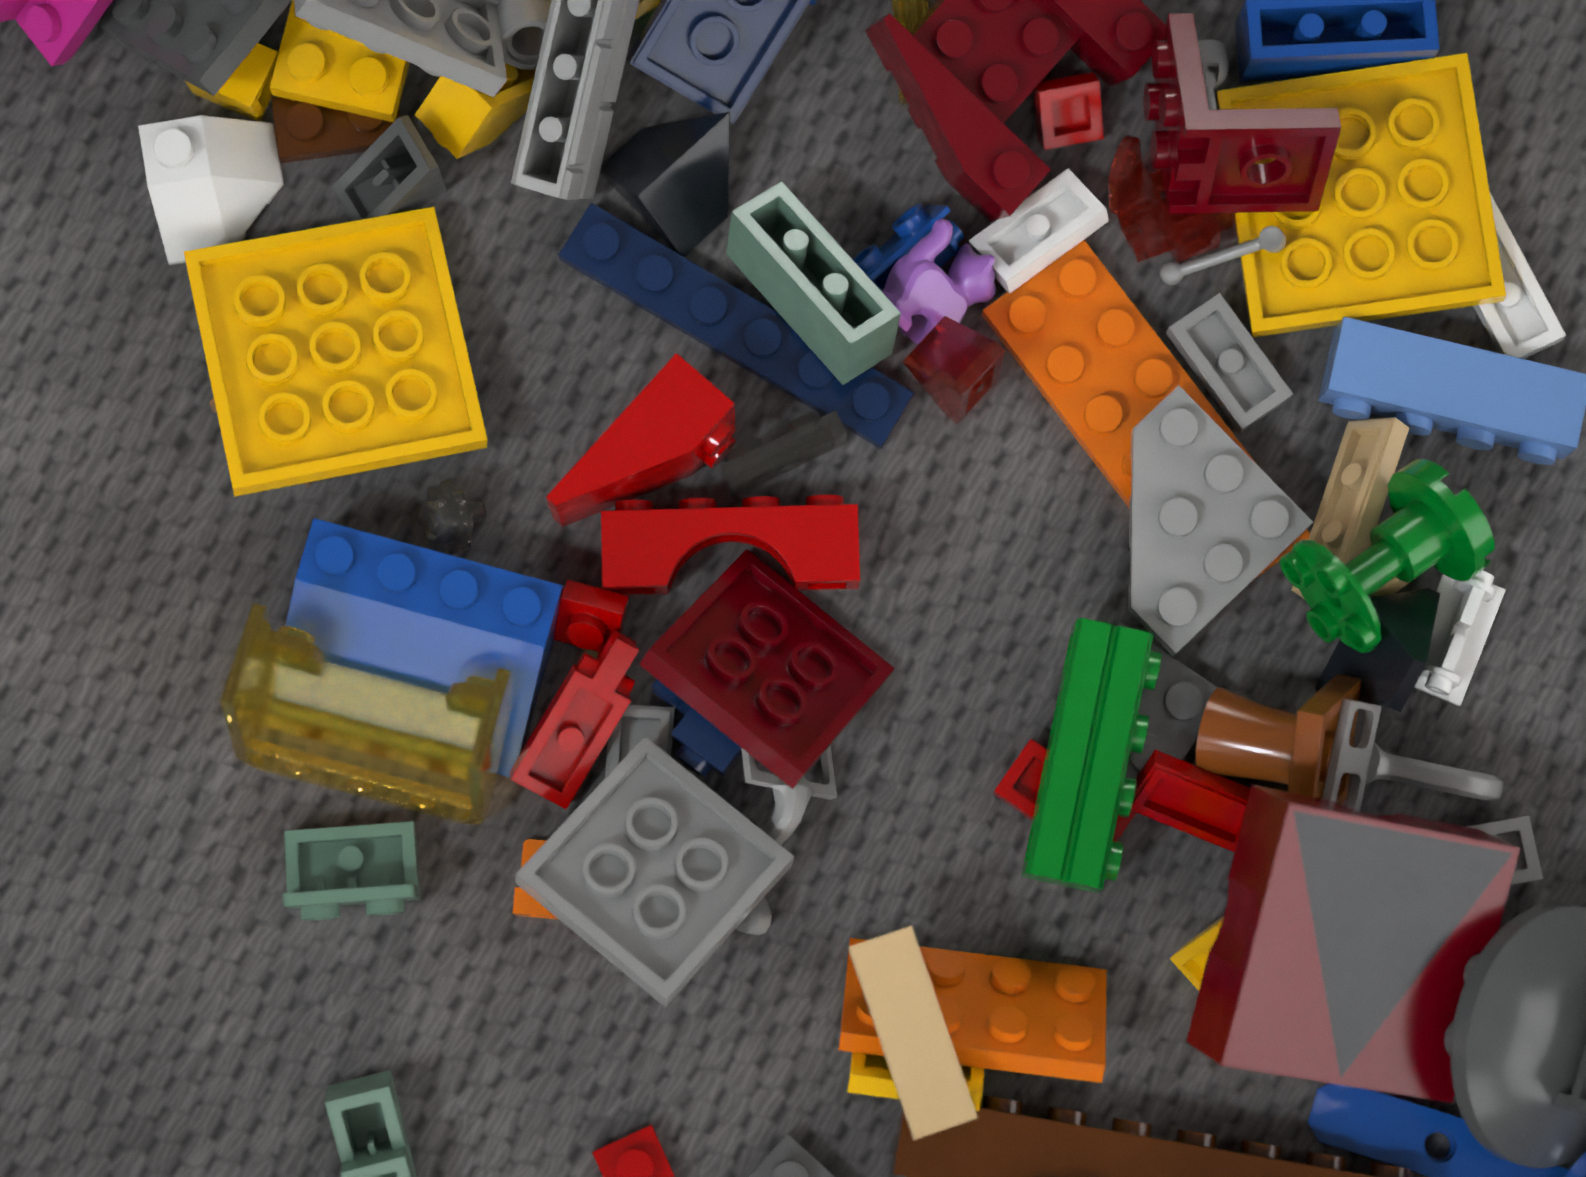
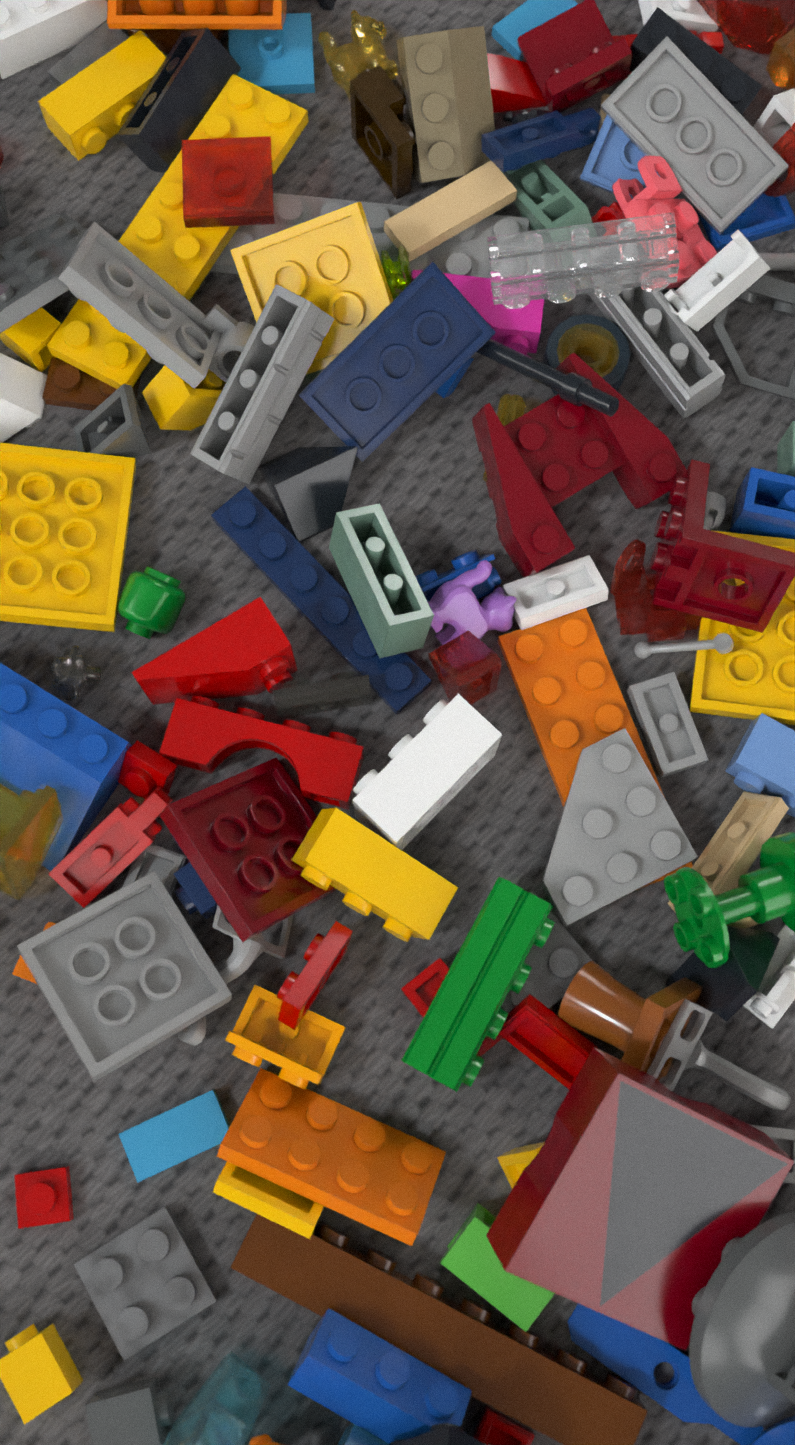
camera: 20 degrees right, 5 degrees down
(521, 394) = (151, 602): none -> green head
(772, 1048) = (175, 1135): none -> dark azure tile
(869, 888) = (299, 1052): none -> light orange bracket
(875, 827) = (302, 989): none -> red plate
(912, 1032) = (273, 1164): tan tile -> none
(920, 661) = (373, 875): none -> yellow brick
(945, 515) = (425, 771): none -> white brick
(1068, 111) = (600, 515): red plate -> none
(1200, 1087) = (478, 1266): none -> bright green hinge

